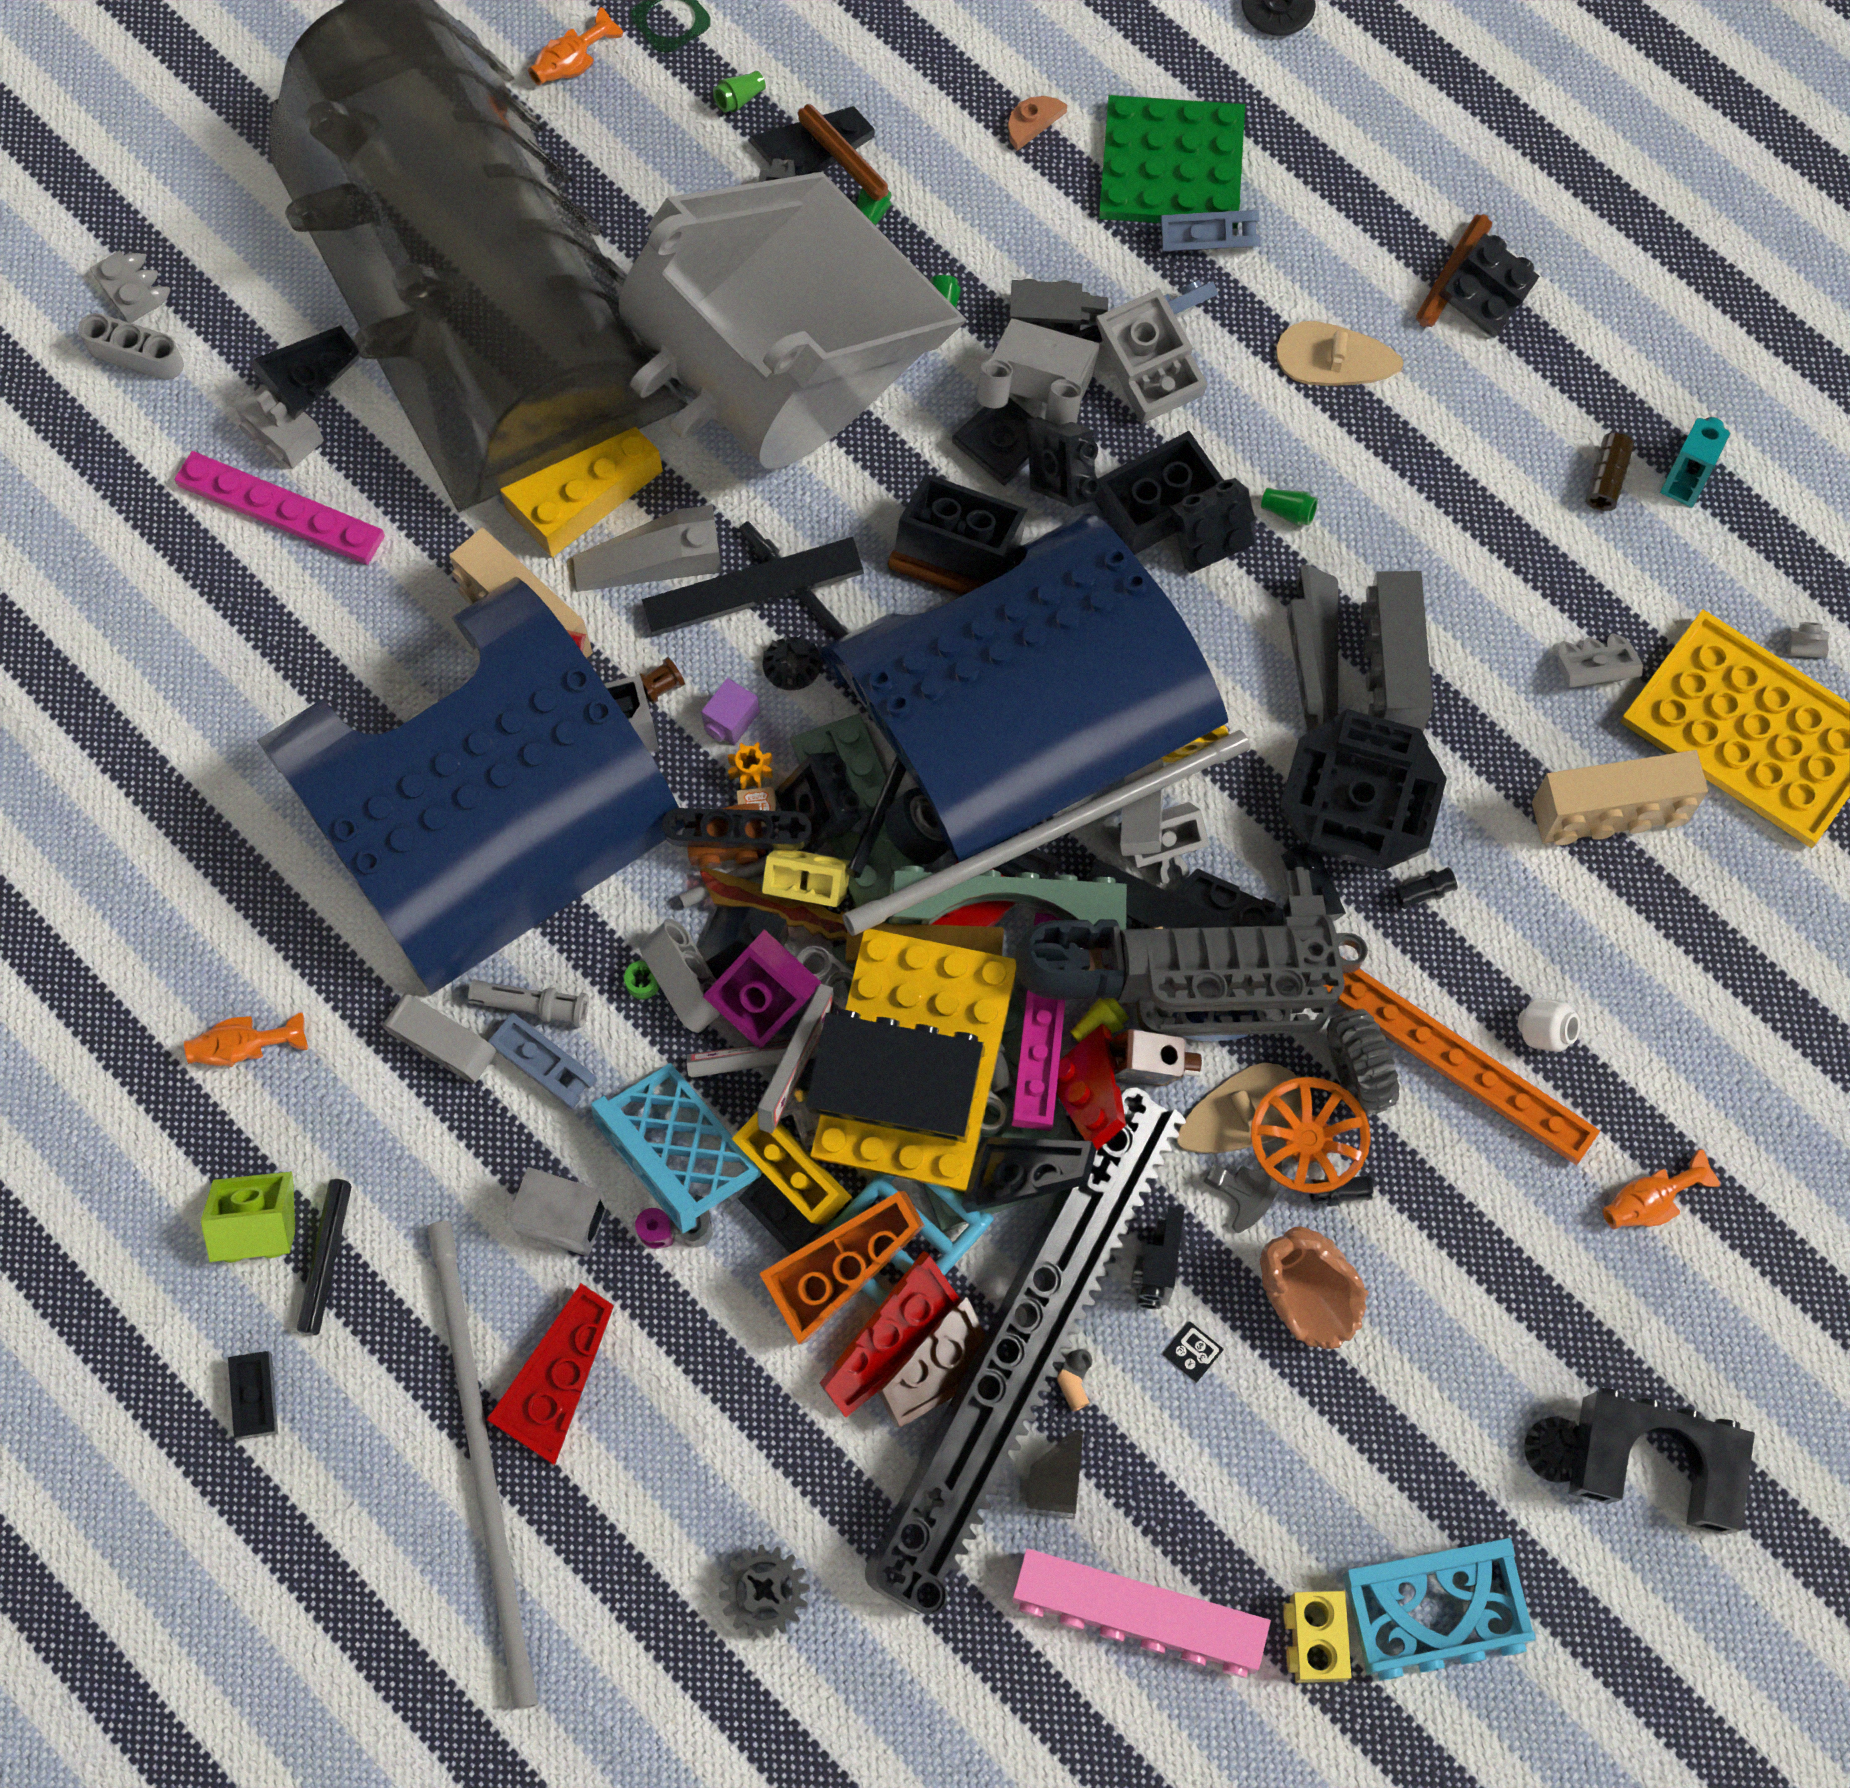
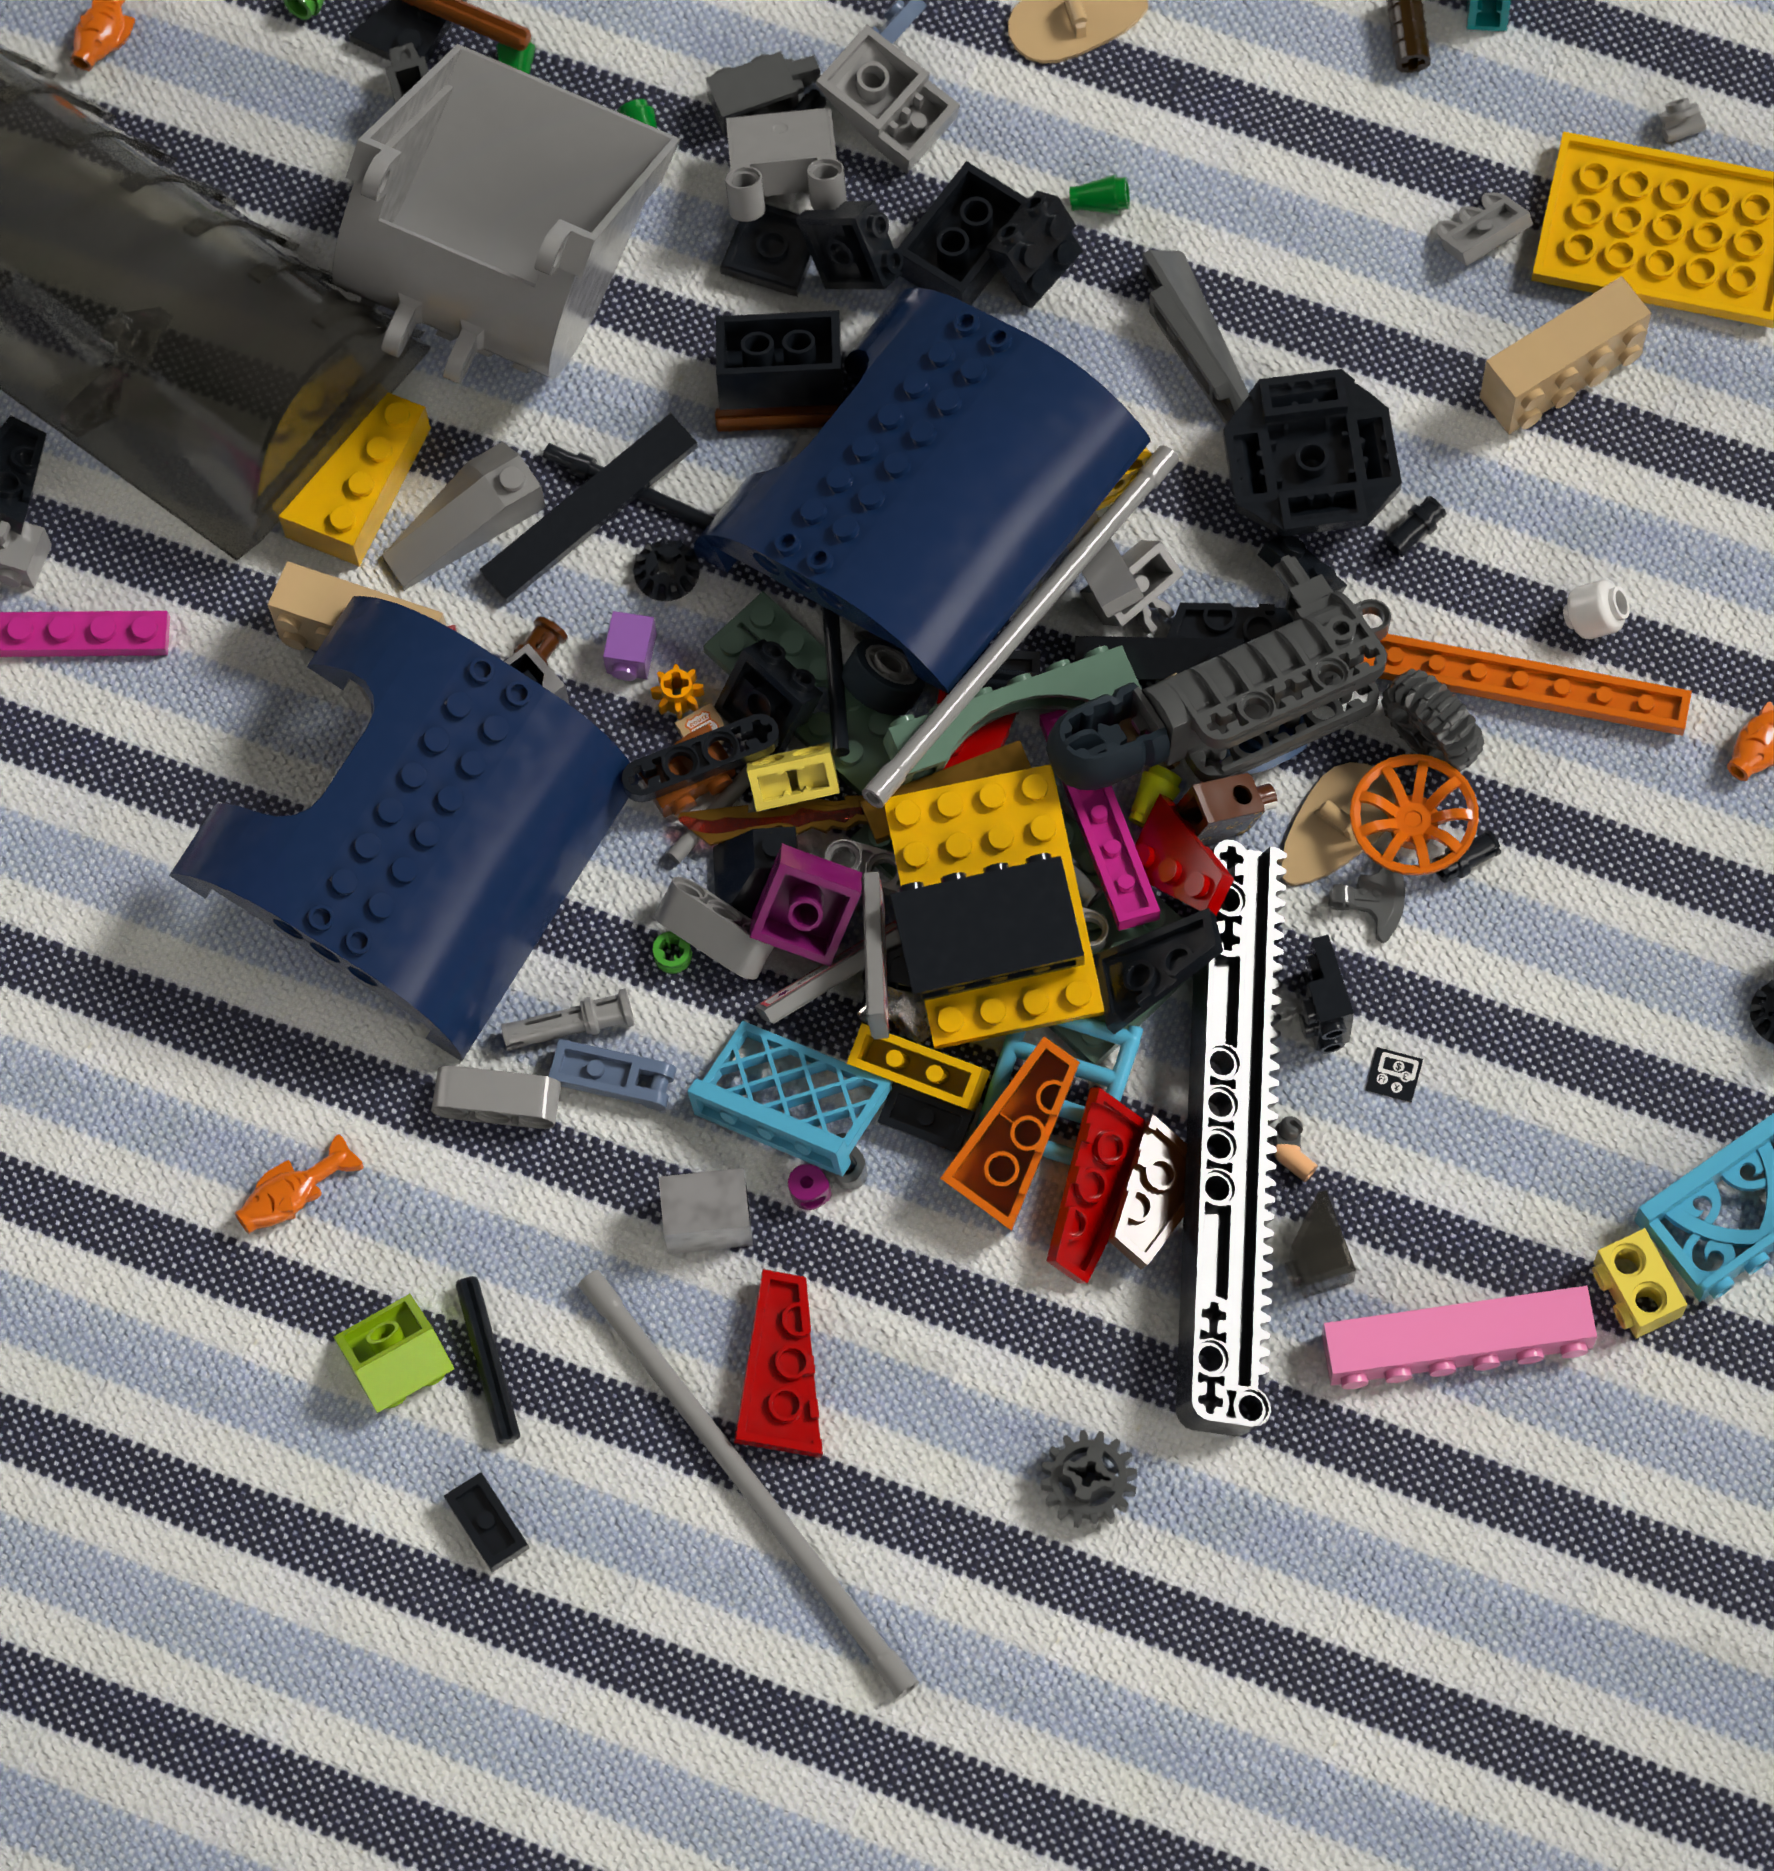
camera: 20 degrees left, 0 degrees up
(1313, 1288) = (1484, 959): nougat hair -> none
(1397, 648) = (1280, 297): dark grey brick -> none

